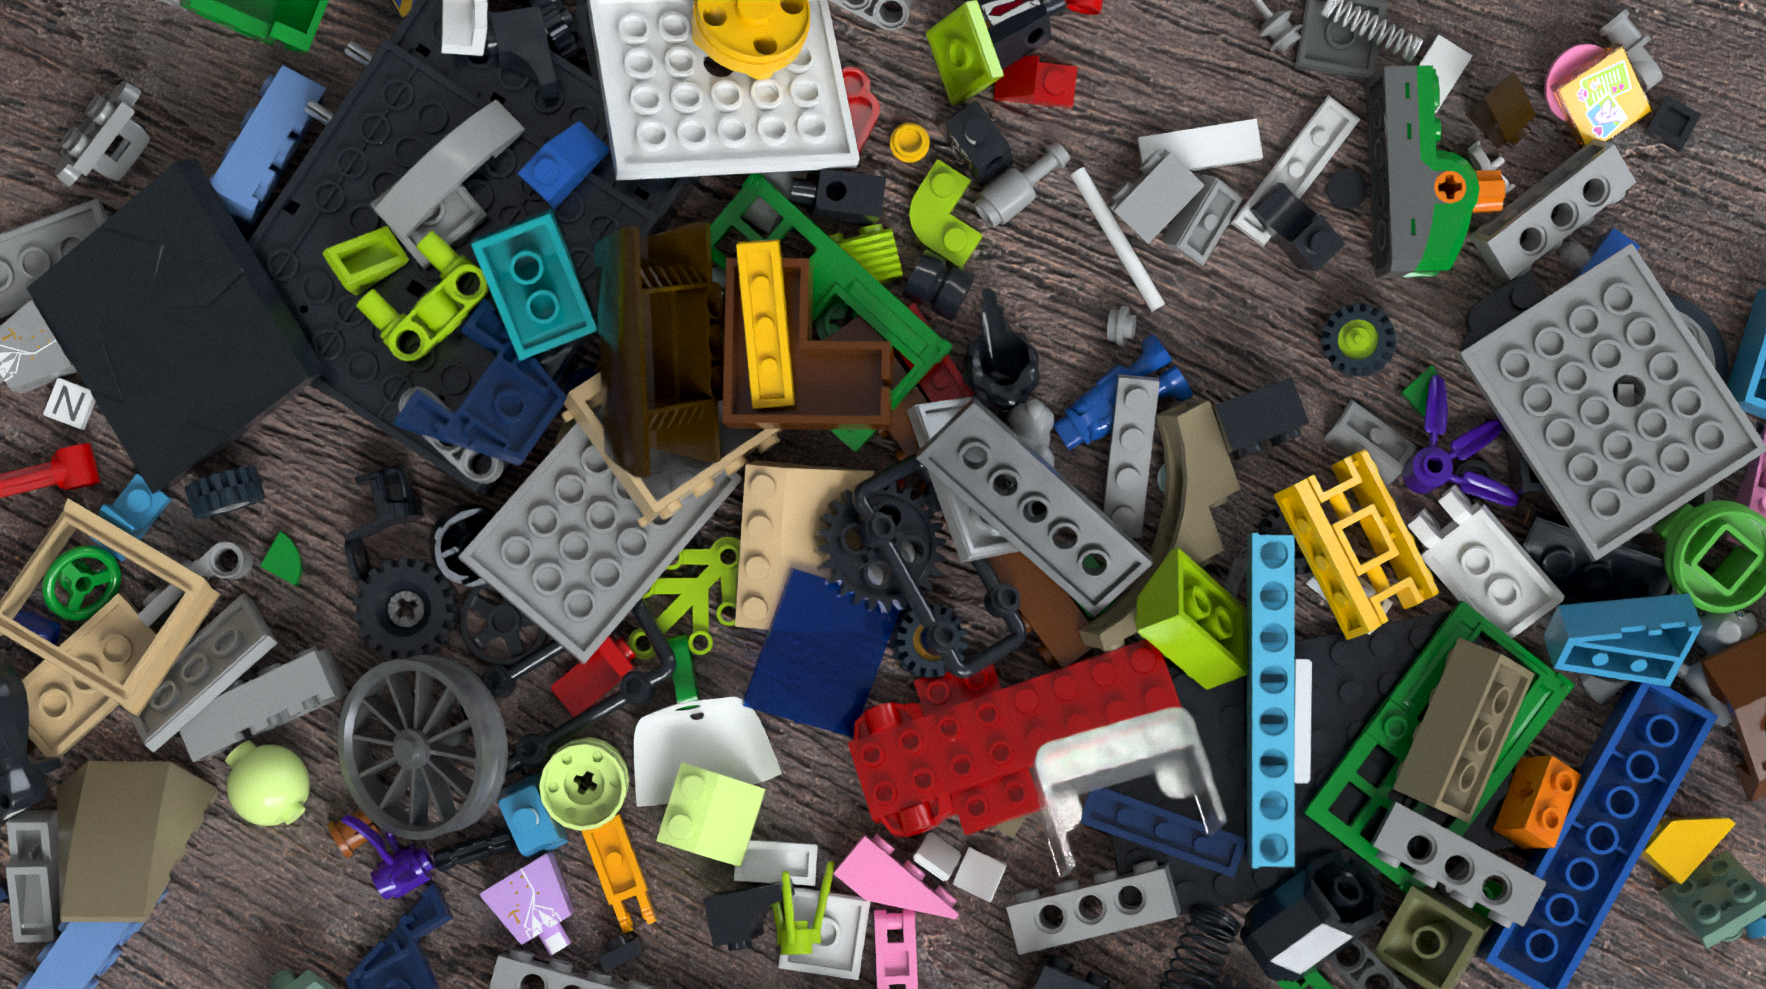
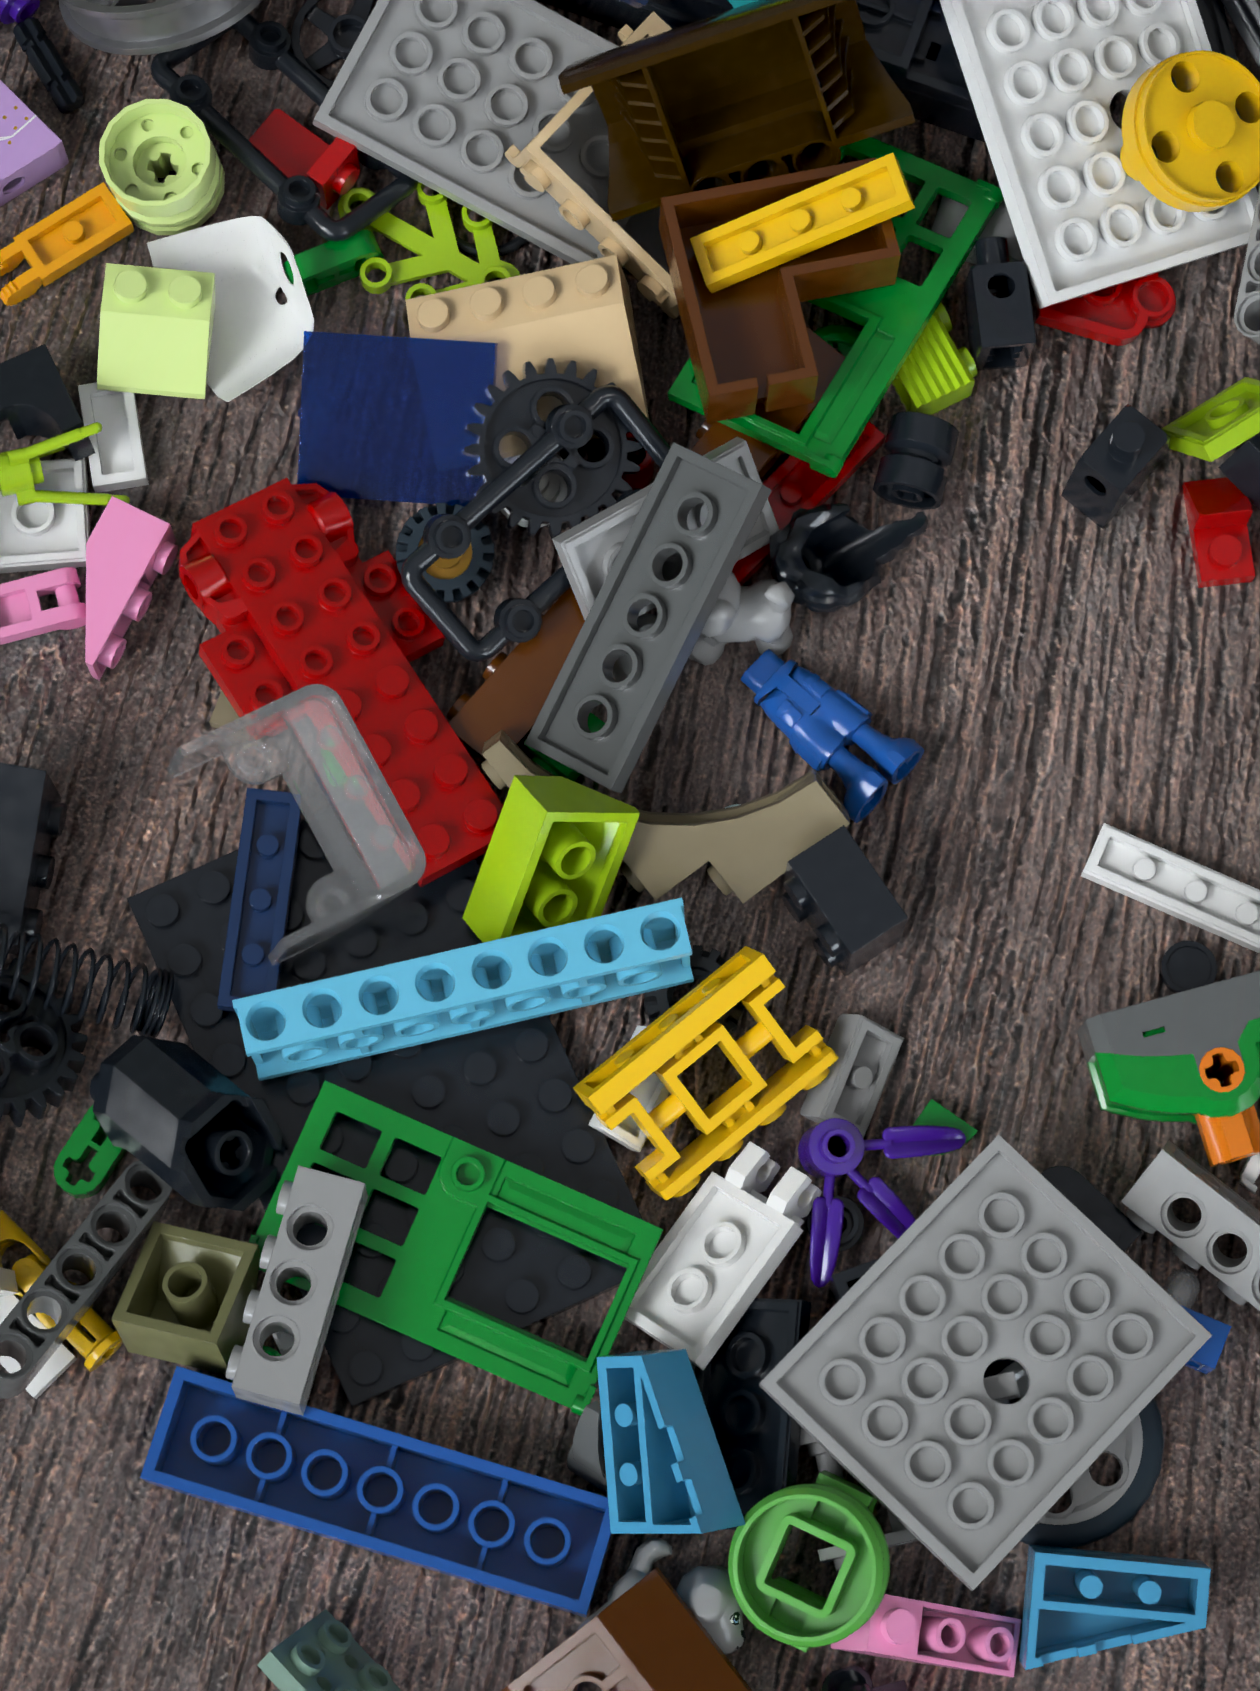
camera: 75 degrees right, 10 degrees down
(528, 818) = (87, 109): dark azure torso -> none
(909, 142) = (1095, 388): yellow plate -> none
(933, 219) = (1008, 438): lime plate -> none
(937, 856) = (163, 631): white slope -> none
(979, 874) = (152, 694): white slope -> none
(1015, 189) = (1069, 531): light grey piece -> none
(1035, 933) = (167, 911): light grey brick -> none
(1117, 239) = (1039, 682): white bar -> none
(1121, 325) = (924, 707): light grey plate -> none
(1130, 452) = (752, 751): light grey plate -> none
(1155, 195) = (1109, 707): light grey brick -> none
(1203, 220) = (1095, 787): light grey slope -> none
(1207, 145) = (1190, 760): white tile -> none
(1296, 228) = (1116, 899): black arch -> none
(1302, 719) = (448, 1047): white tile -> none
(1359, 340) = (985, 1021): black wheel -> none
(1463, 729) = (483, 1263): dark tan slope -> none
(1537, 802) = (410, 1396): orange brick -> none
(1683, 843) = (399, 1617): yellow slope -> none

